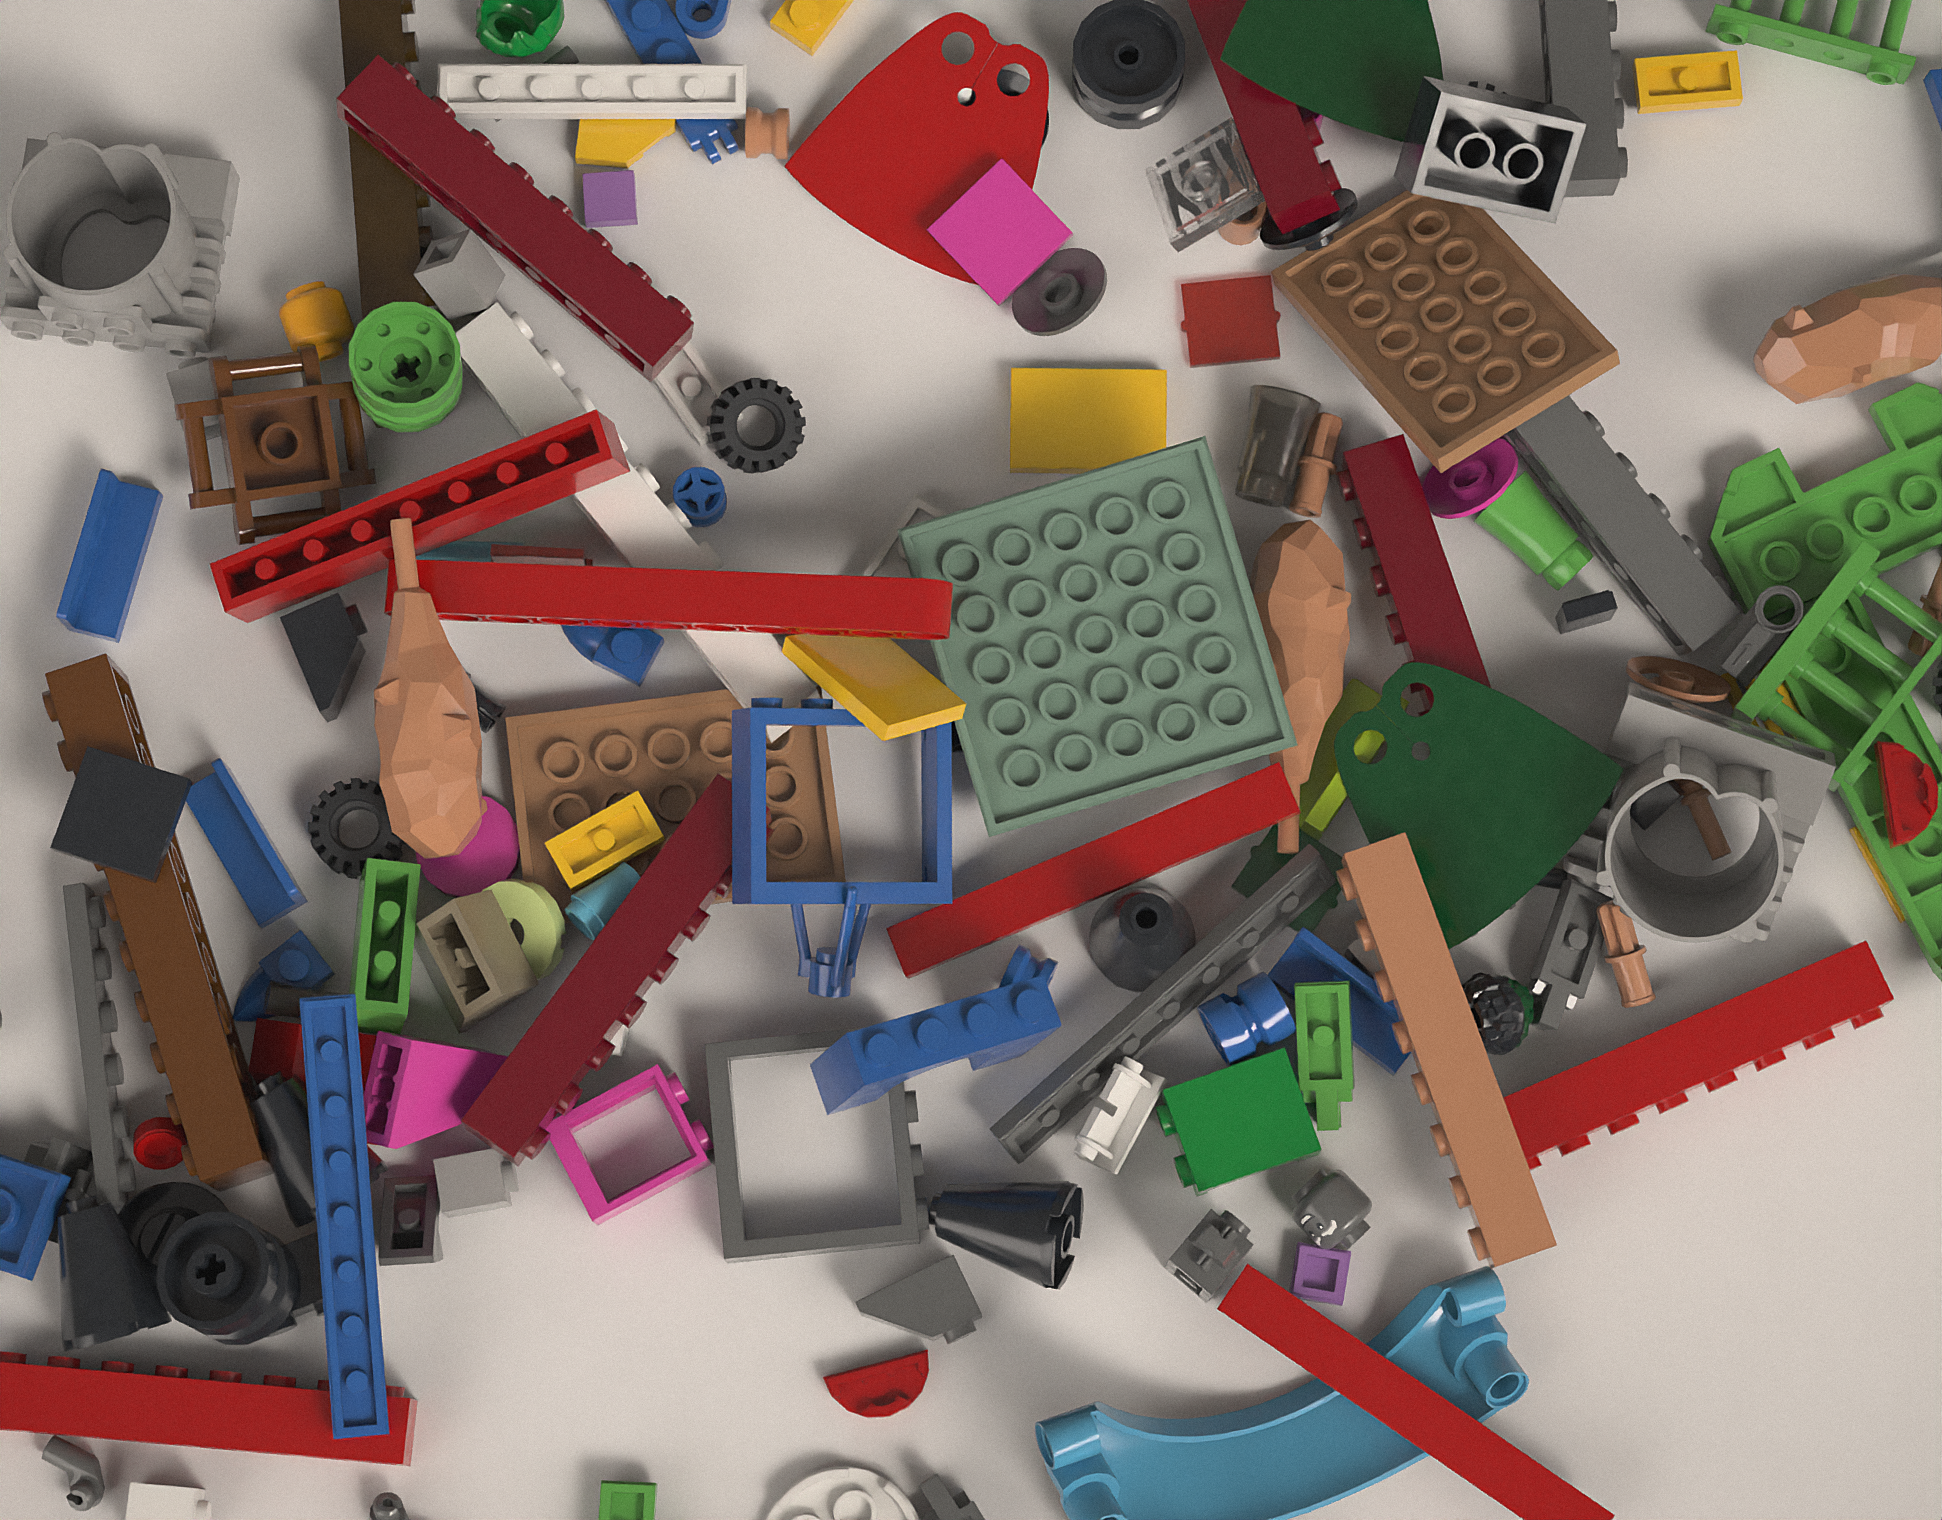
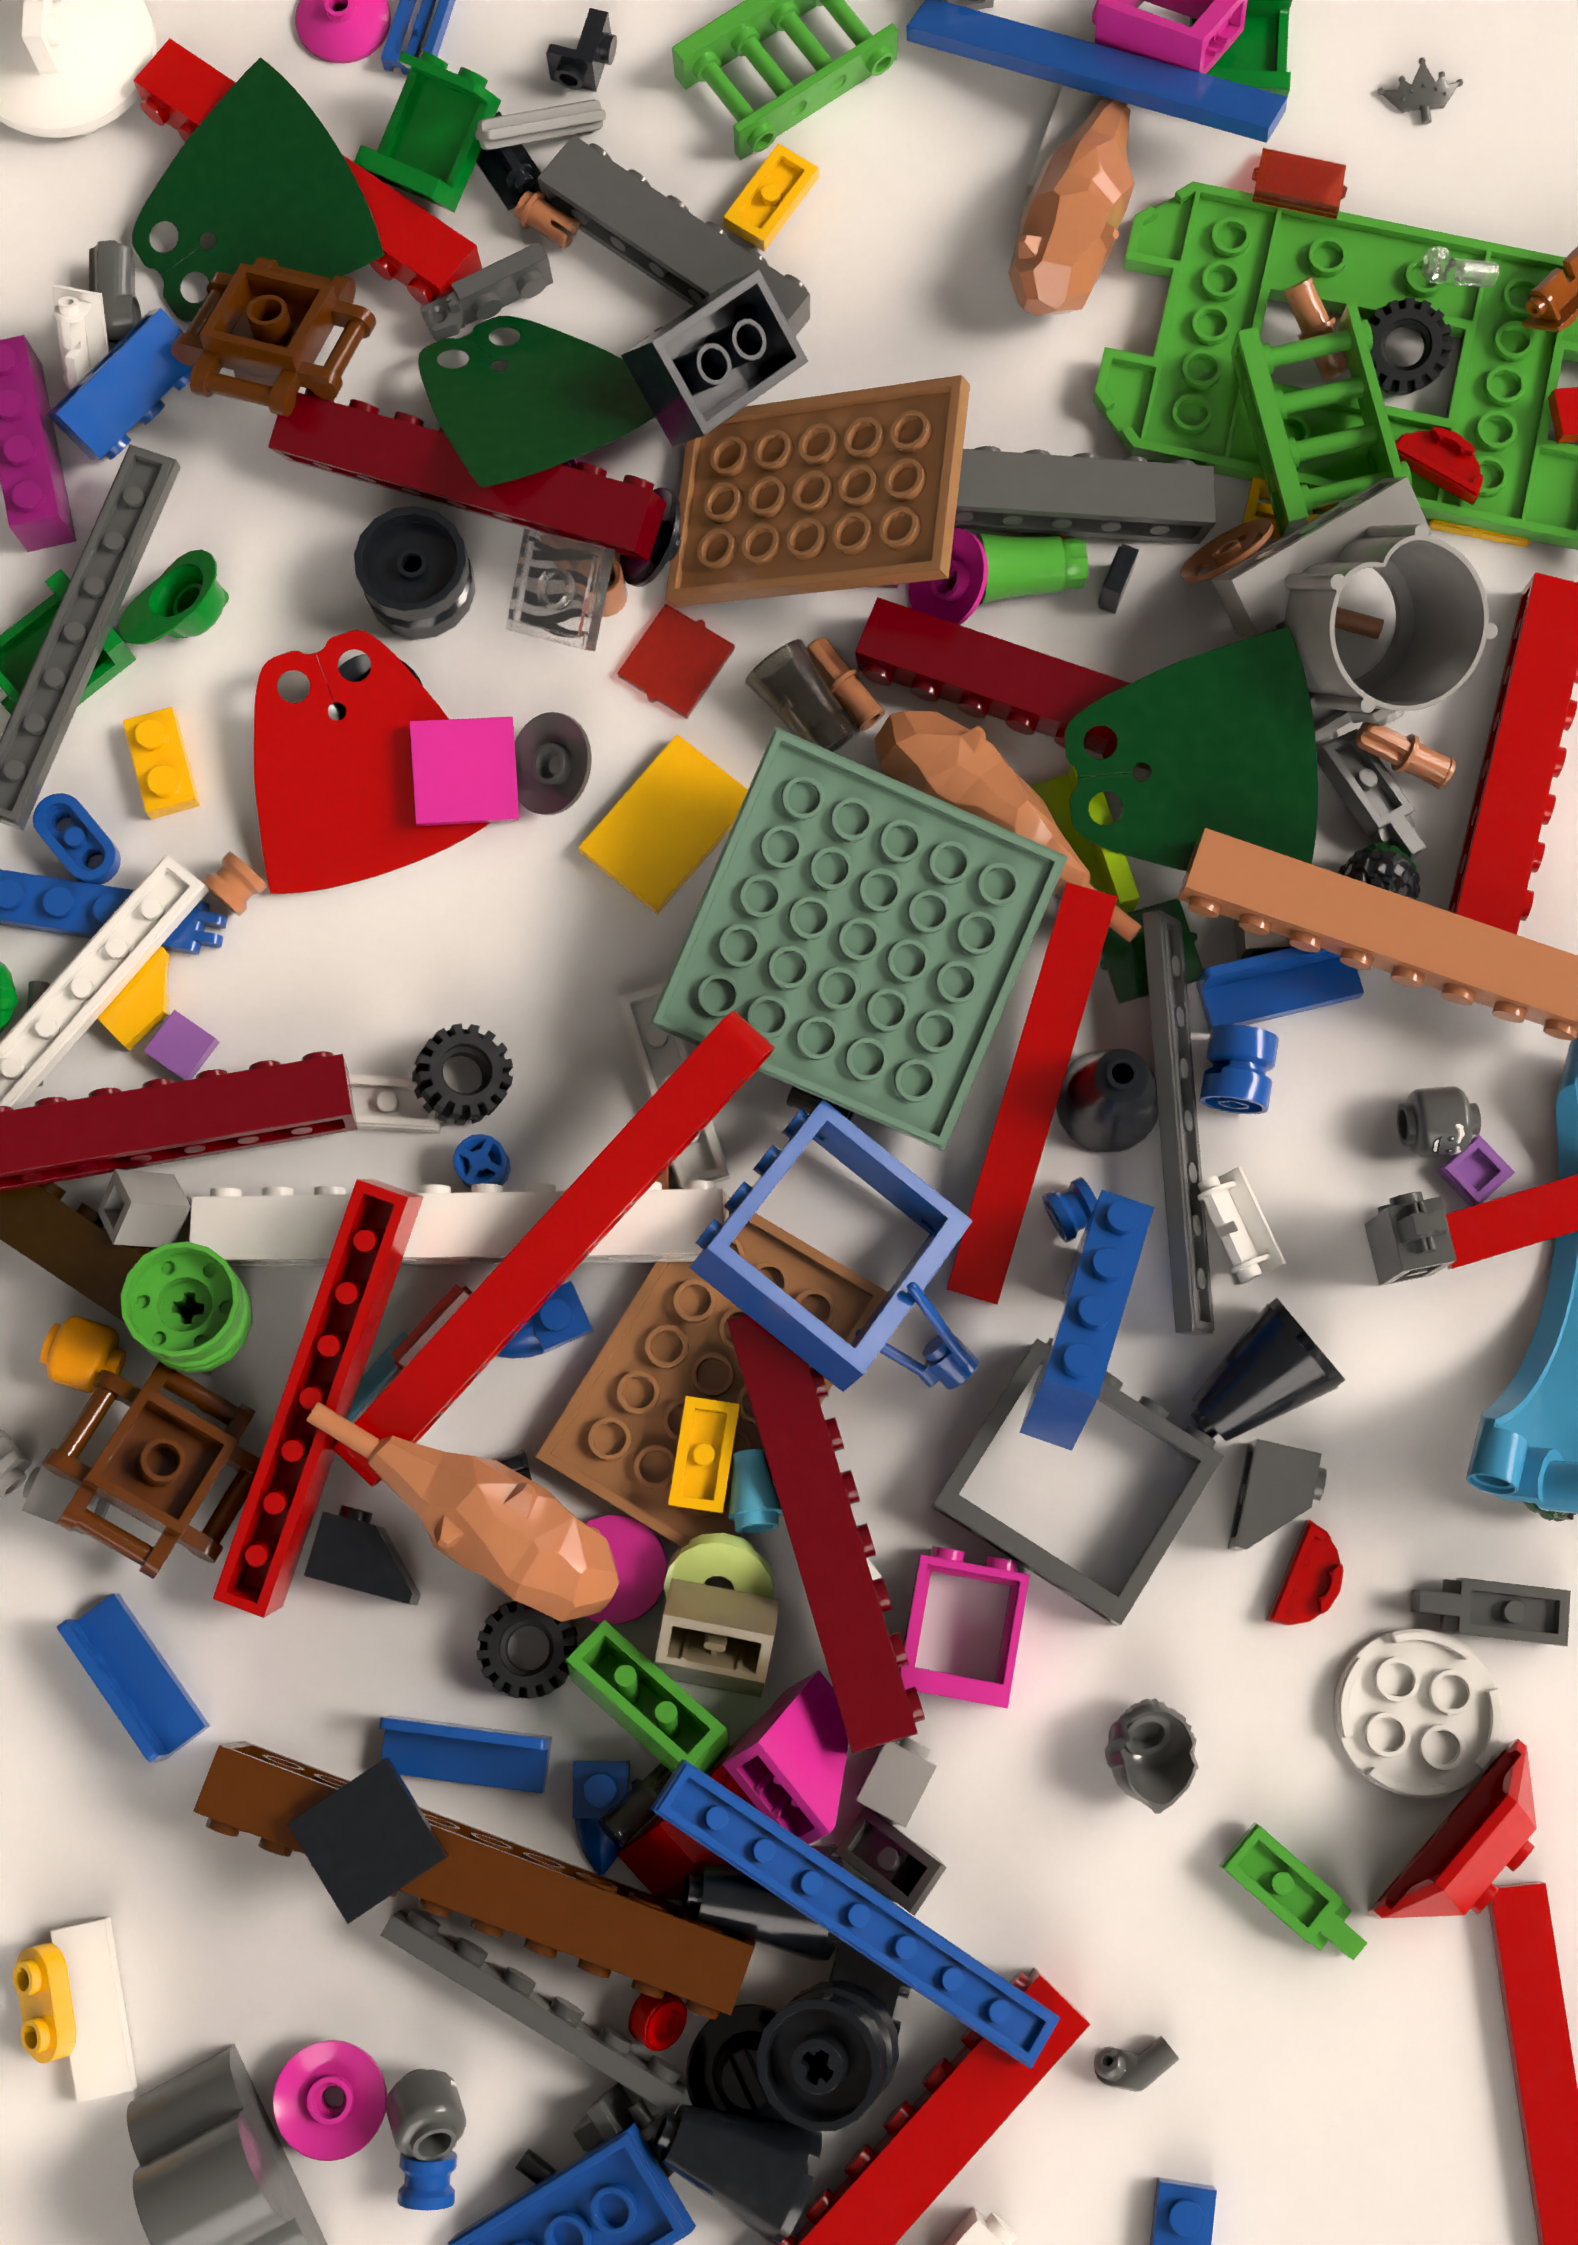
camera: 50 degrees left, 0 degrees up
(645, 1360) = (1152, 1754): none -> dark grey hair
(875, 682) = (757, 1138): yellow tile -> none
(1237, 1122) = (1316, 1139): green panel -> none
(1325, 1048) = (1308, 1027): bright green hinge -> none
(1755, 638) = (1242, 469): dark grey piece -> none

